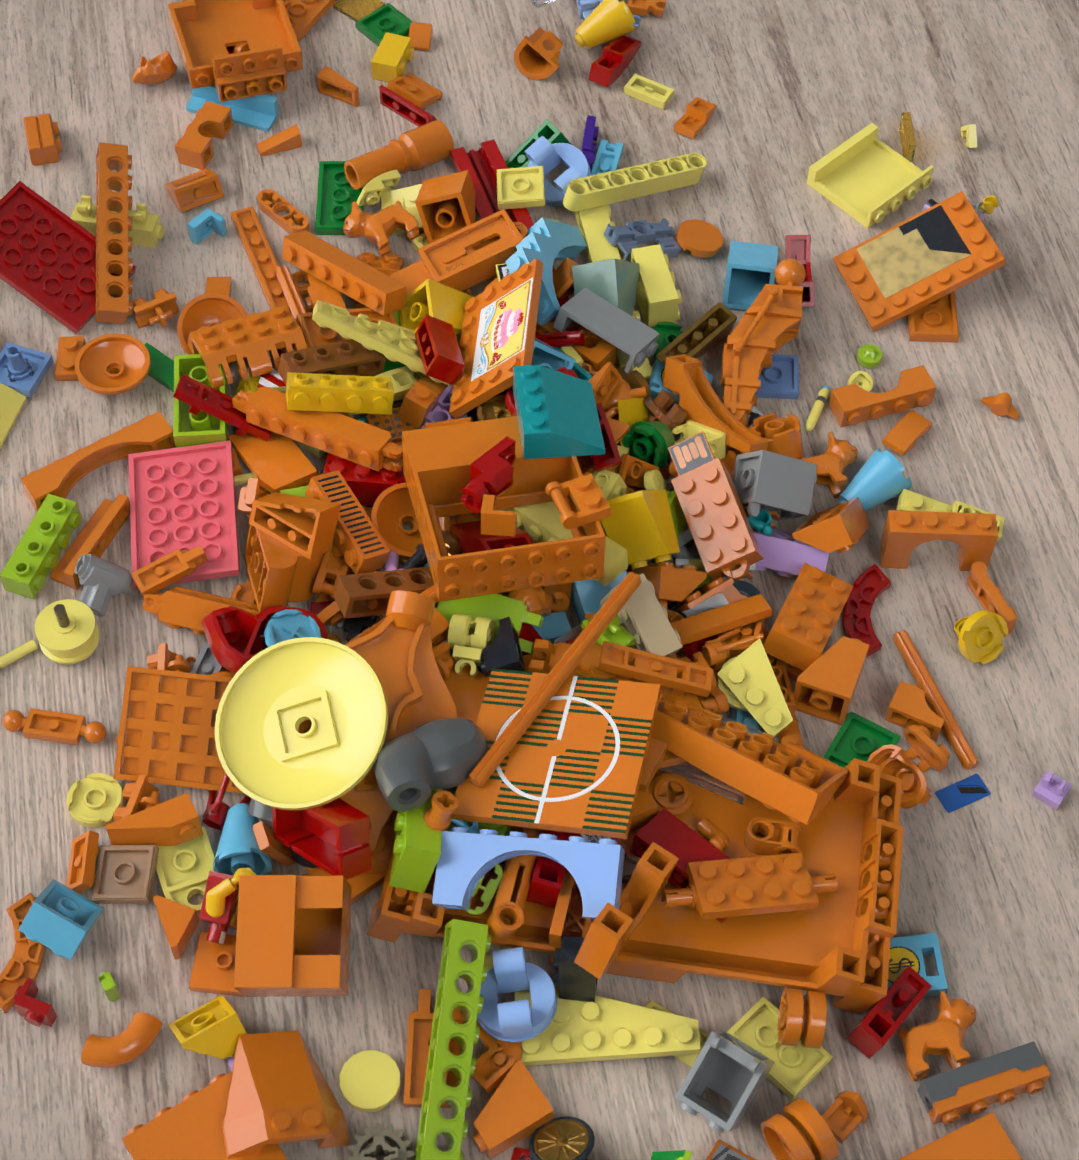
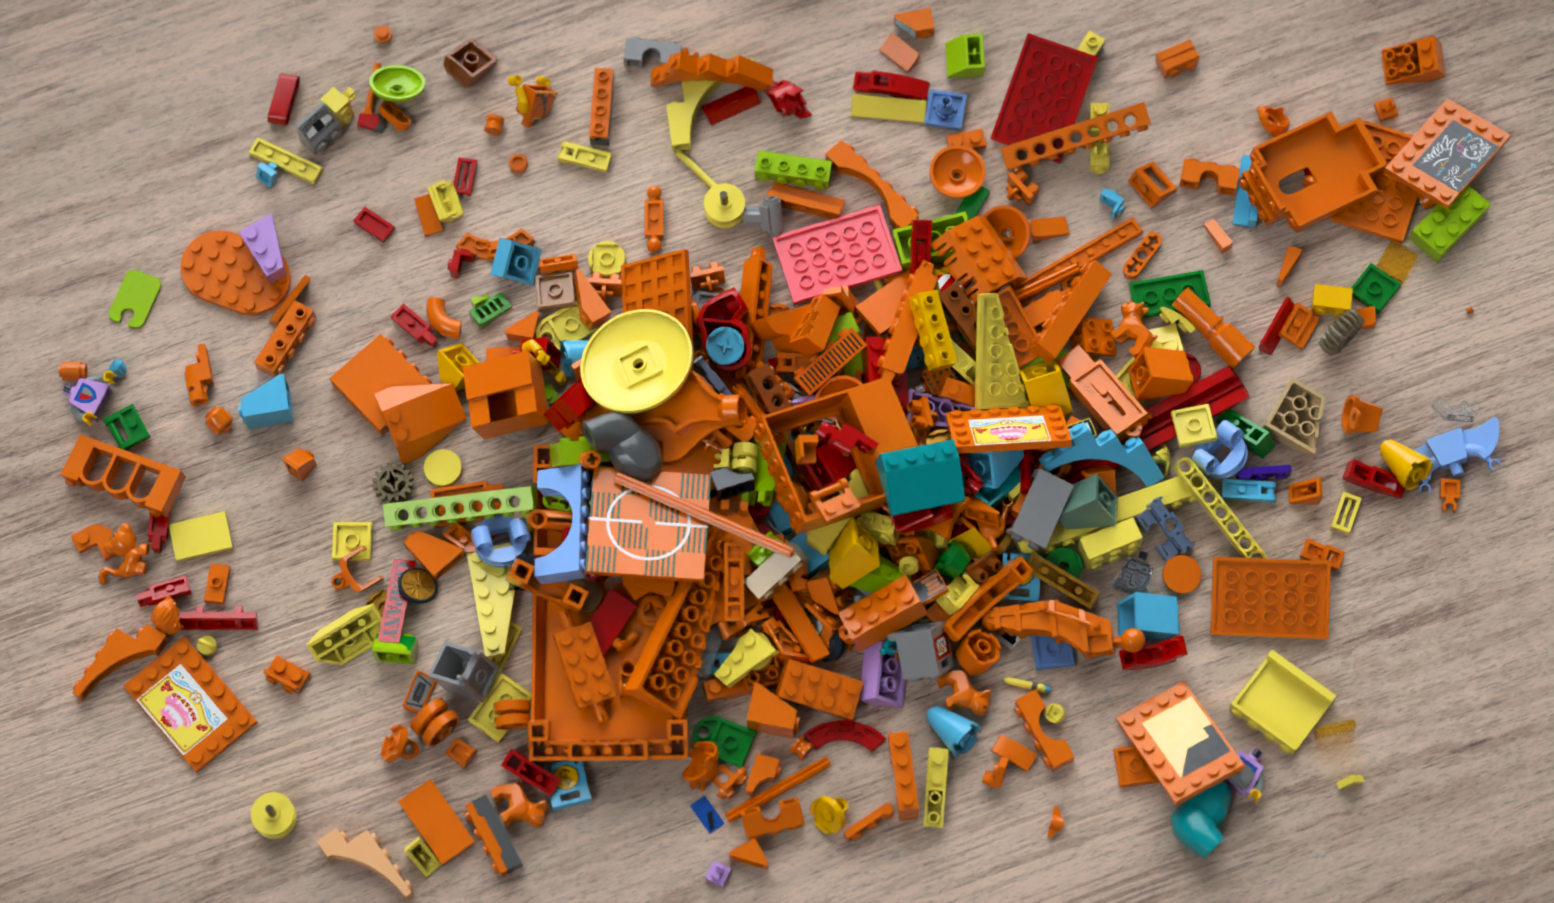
camera: 85 degrees right, 15 degrees up
(119, 1090) = (414, 325): none -> red hinge
(136, 991) = (474, 313): none -> bright green slope
(168, 569) = (781, 256): orange hinge -> none
(436, 48) = (1341, 332): none -> dark tan gear
(439, 350) = (995, 393): red brick -> none
(524, 104) = (1296, 417): none -> tan wedge
(619, 112) = (1306, 492): none -> orange slope
(697, 279) = (1134, 575): none -> torso
(745, 160) = (1270, 597): none -> orange plate
(835, 527) = (900, 700): orange slope -> none
(869, 356) = (1087, 719): lime tile -> none
(881, 659) = (801, 748): none -> orange wheel
(938, 447) = (996, 778): none -> orange bracket
(978, 685) = (789, 817): none -> orange arch
(1025, 267) = (1198, 819): none -> teal piece
(1026, 741) = (750, 854): none -> orange slope

